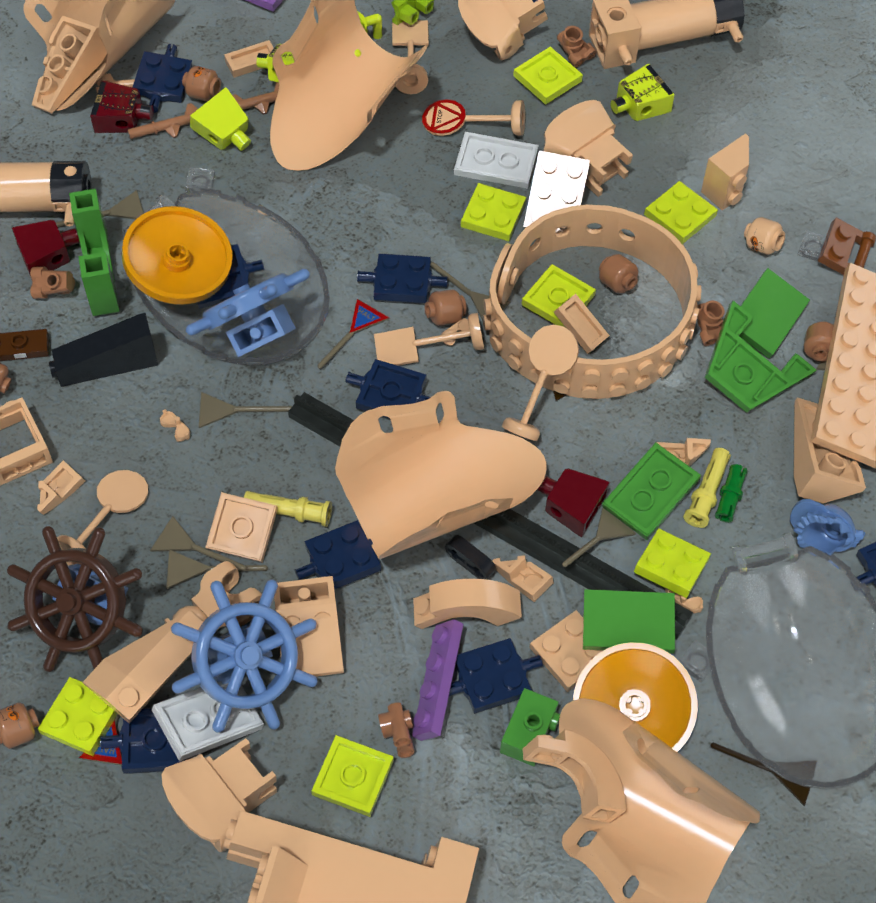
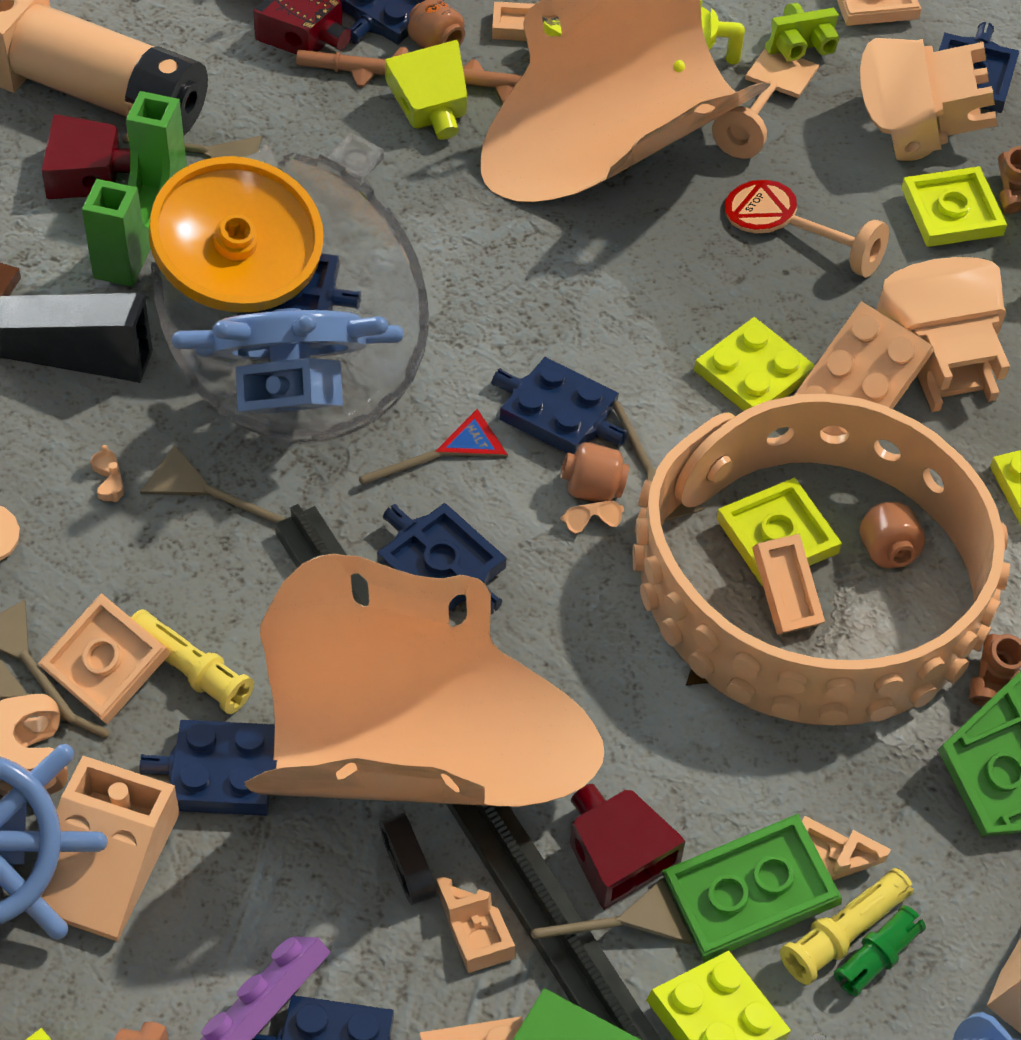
camera: 25 degrees right, 5 degrees down
(50, 282) = (58, 207): nougat plate -> none
(400, 346) = (496, 501): light nougat piece -> none
(467, 598) = (363, 919): light nougat arch -> none
(496, 160) = (799, 293): white tile -> none
(553, 353) = (697, 603): light nougat piece -> none

